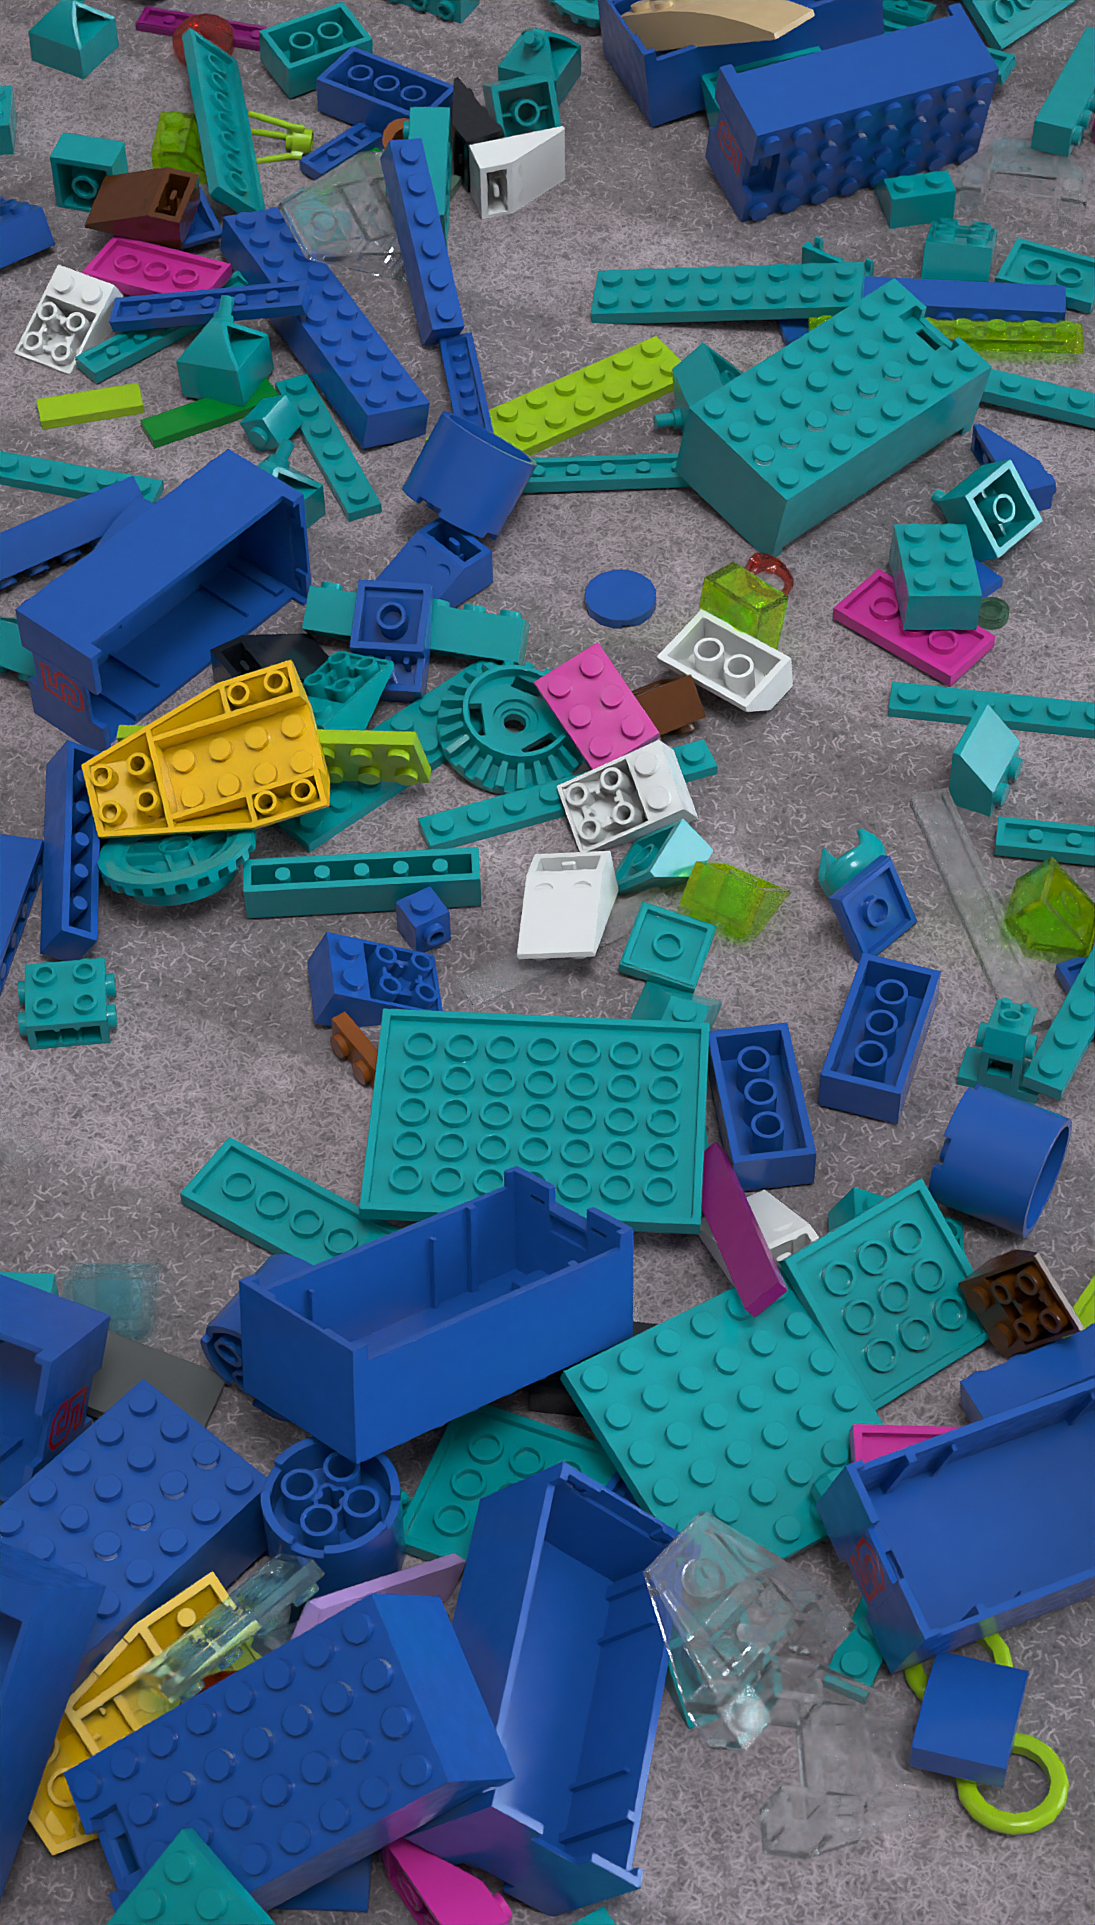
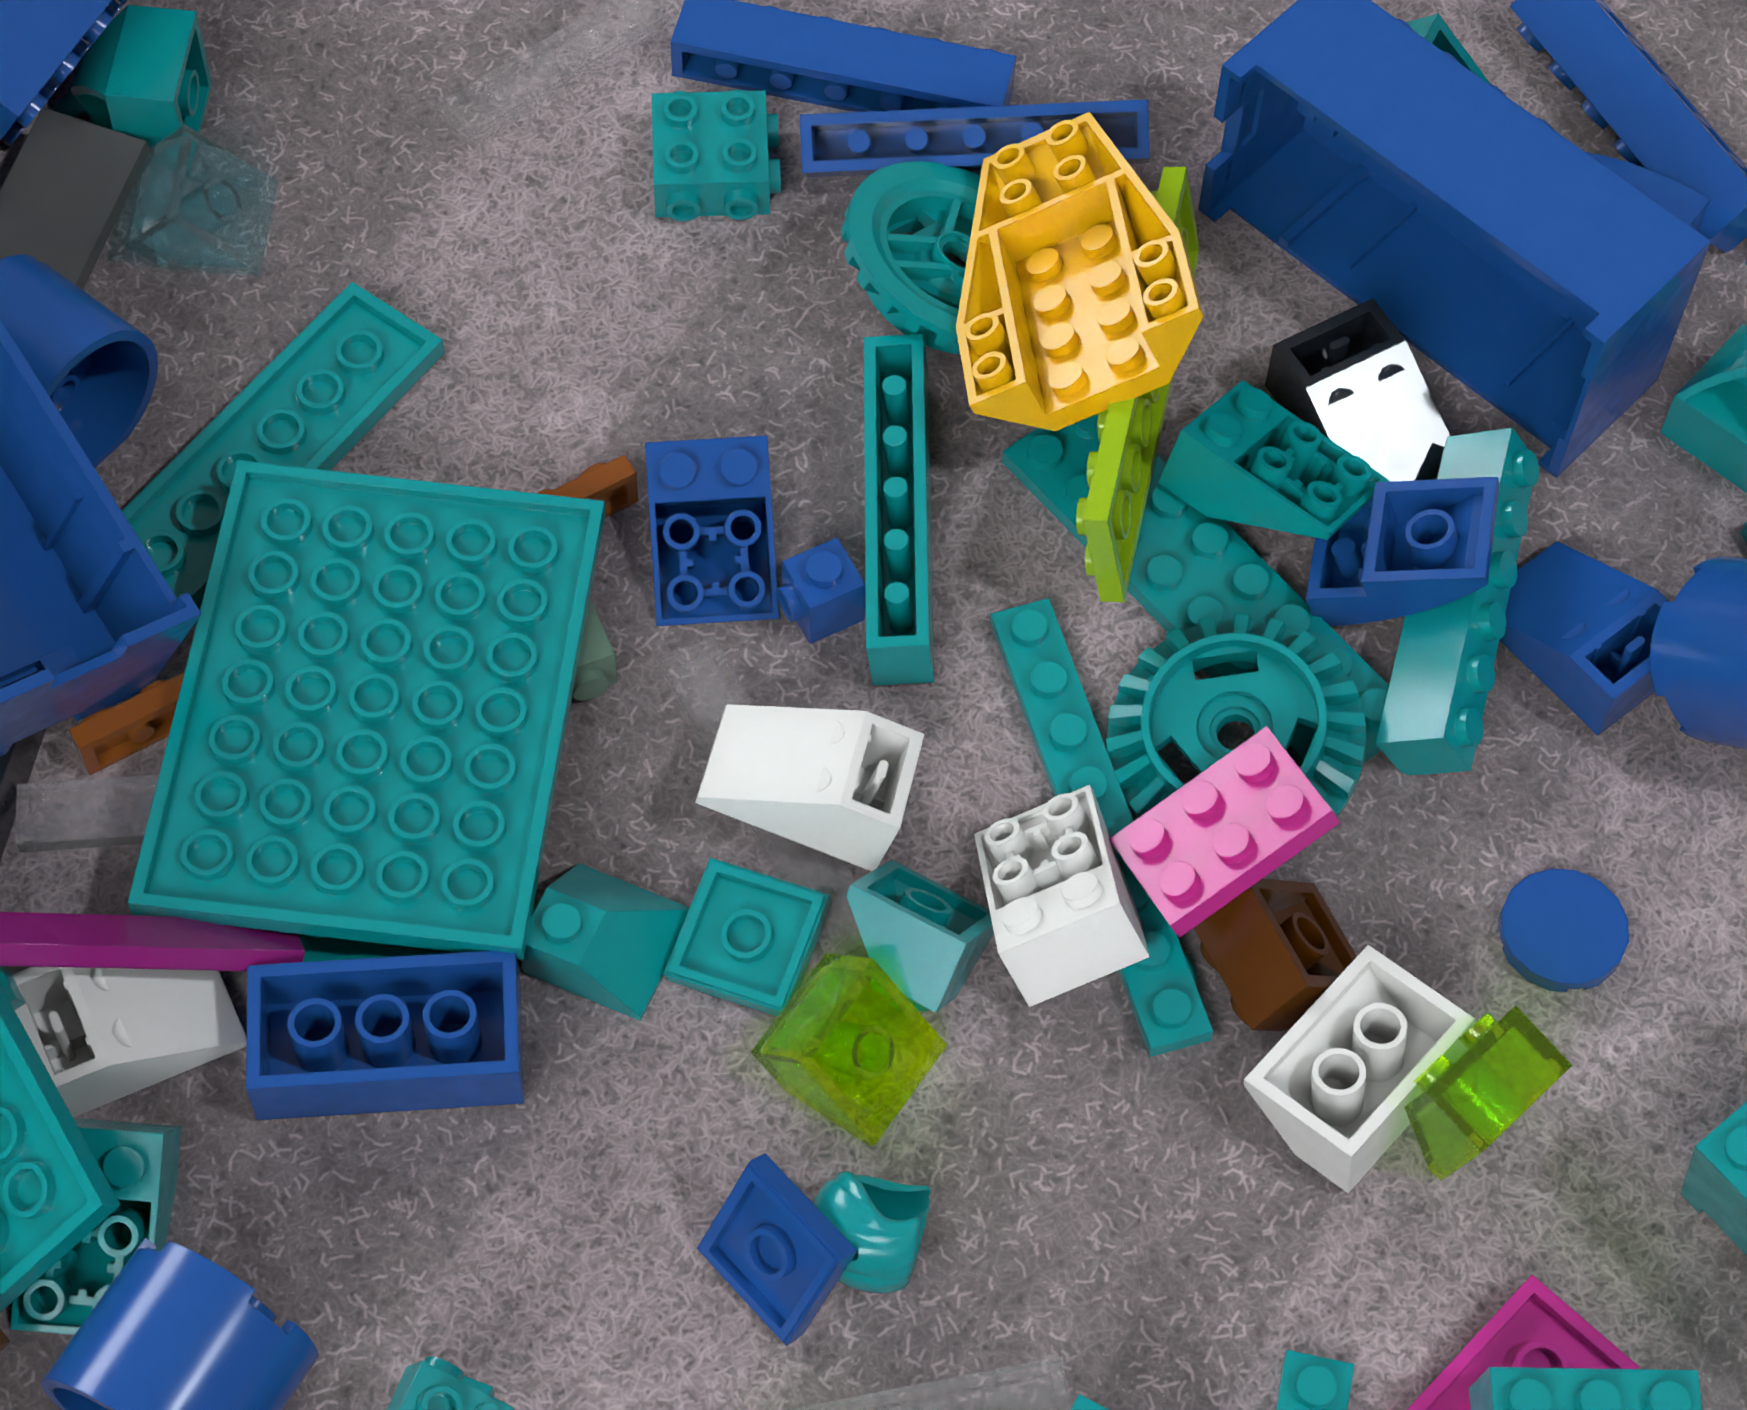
camera: 90 degrees right, 10 degrees up
(764, 562) = (1615, 1147): clear red piece -> none
(879, 1038) = (503, 1233): blue brick -> none

